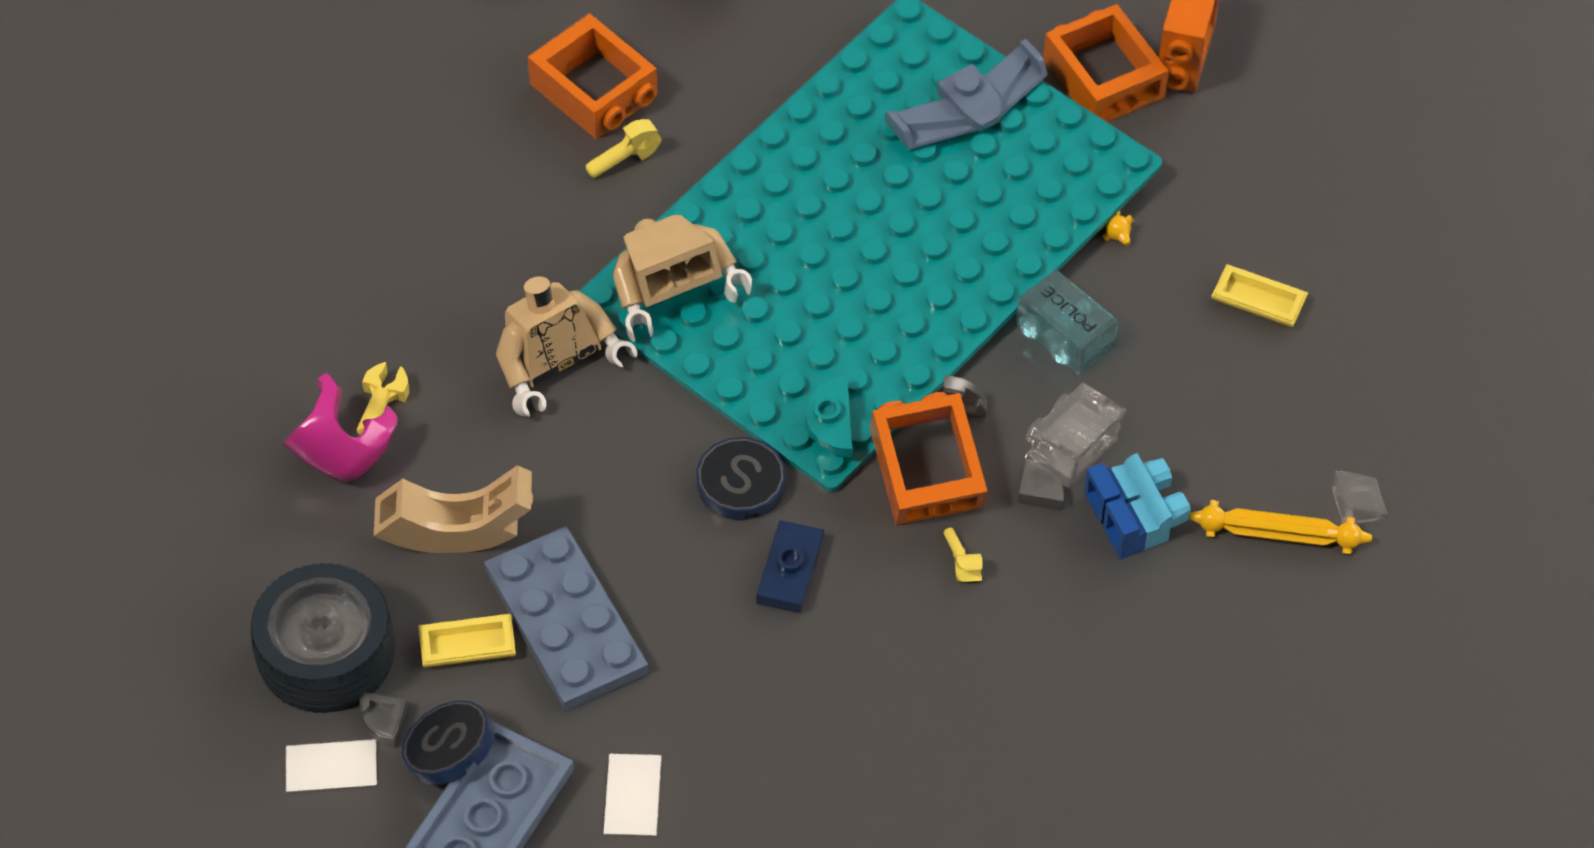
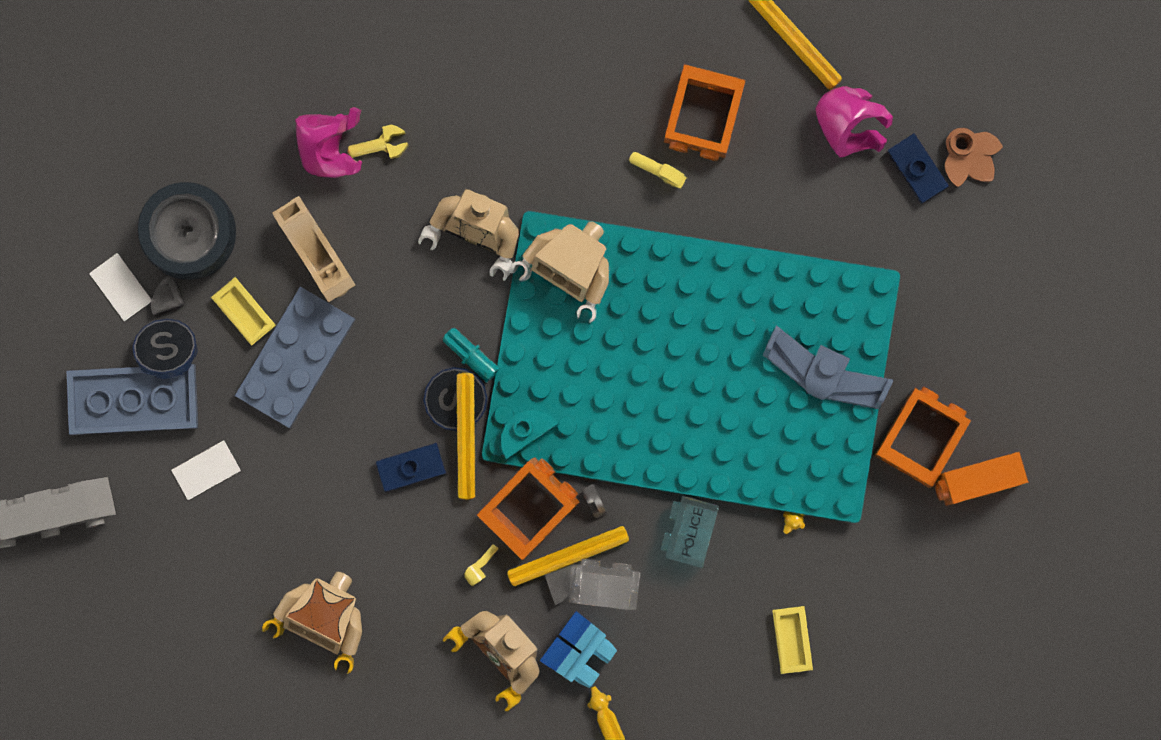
camera: 65 degrees right, 30 degrees up
(699, 432) = (470, 354): none -> teal axle
(794, 480) = (466, 435): none -> yellow axle
(912, 743) = (322, 615): none -> torso
(1011, 462) = (568, 556): none -> yellow axle
(1083, 566) = (505, 647): none -> tan torso

